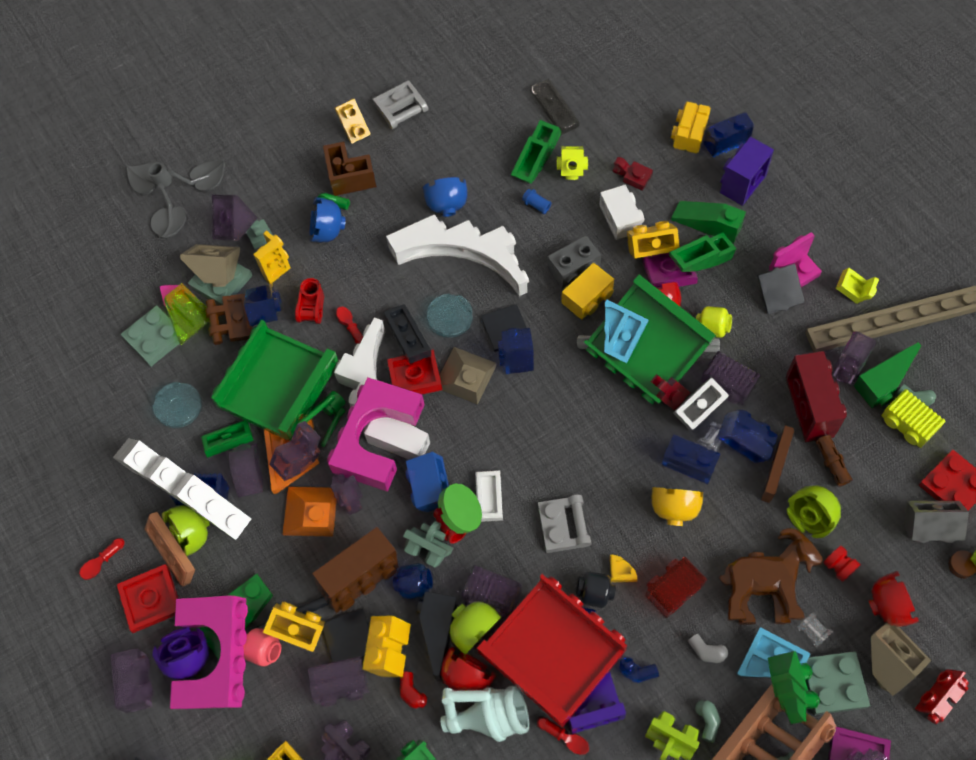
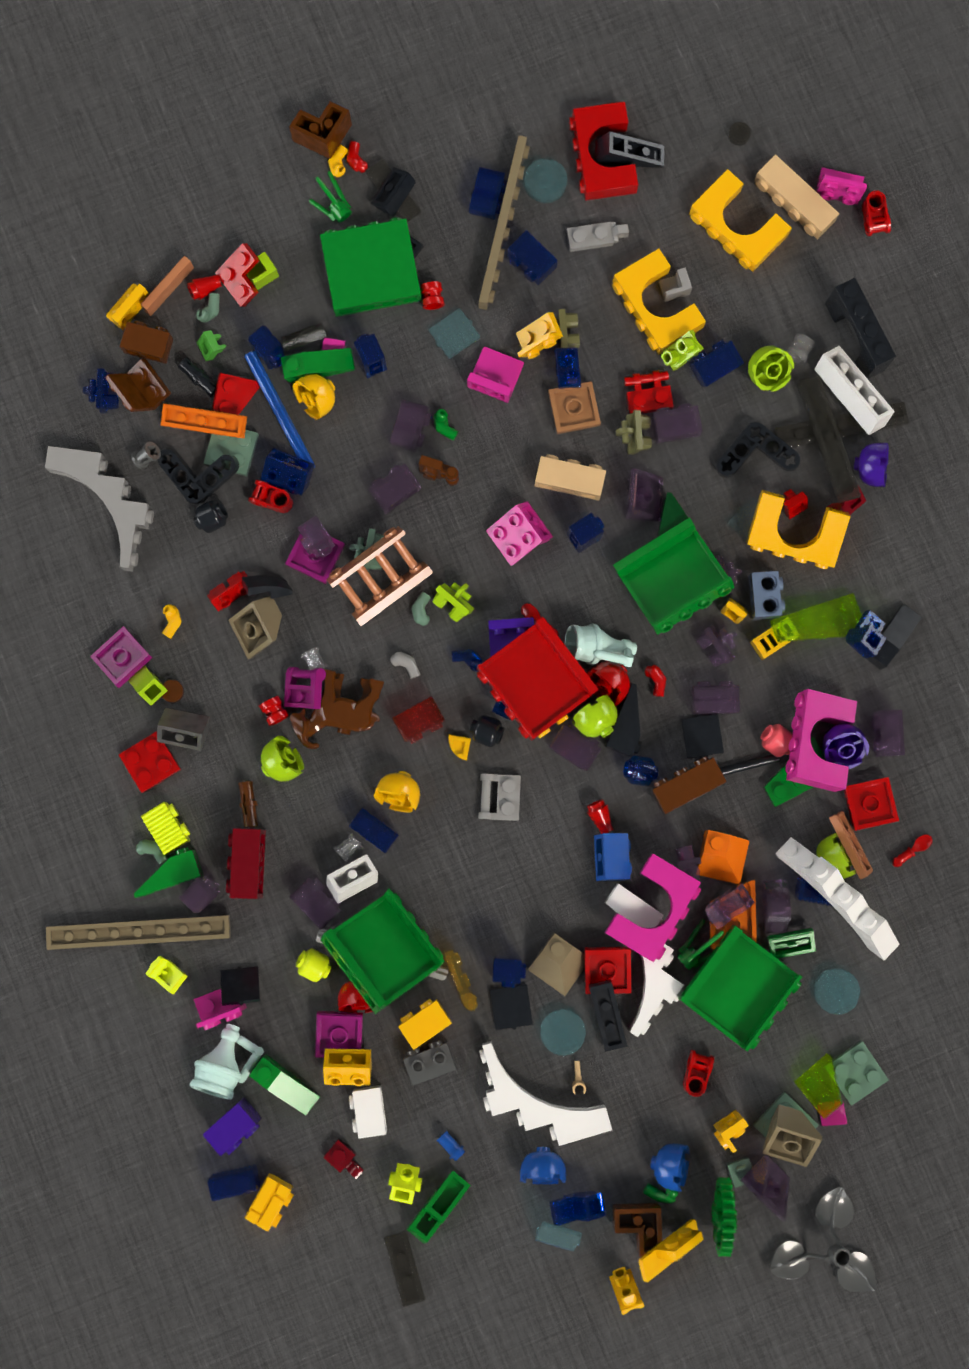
camera: 175 degrees left, 20 degrees up
(237, 322) = (772, 1074): reddish brown plate -> none
(262, 304) = (745, 1075): clear blue brick -> none
(269, 182) = (724, 1216): none -> green gear
(294, 626) = (747, 748): yellow brick -> none
(312, 149) = (670, 1250): none -> yellow bracket
(345, 317) = (665, 1051): red piece -> none
(385, 646) = (672, 718): yellow brick -> none
(398, 99) = (573, 1315): light grey plate -> none
(407, 176) = (578, 1206): none -> clear blue brick
(417, 539) = (621, 803): sand green hips -> none
(421, 148) = (558, 1236): none -> clear light blue piece
(426, 276) = (578, 1078): none -> tan hand
(460, 508) = (589, 823): bright green tile -> none
(489, 495) = (560, 837): white tile -> none
(562, 337) = (461, 981): none -> clear yellow hinge
(622, 331) = (405, 964): medium azure wing -> none
(670, 392) = (374, 897): dark red plate -> none
(703, 253) = (304, 1039): green slope -> none
(747, 436) = (319, 839): clear blue brick -> none
(766, 646) = (355, 645): medium azure wing -> none
(775, 212) = (218, 1070): none -> light aqua piece
(777, 464) = (299, 810): reddish brown tile -> none
(790, 685) = (354, 614): green connector -> none
(818, 584) = (303, 695): none -> magenta plate
(837, 683) = (311, 617): sand green plate -> none
(892, 601) = (244, 669): red cylinder -> none
(908, 706) = (274, 586): none -> black slope

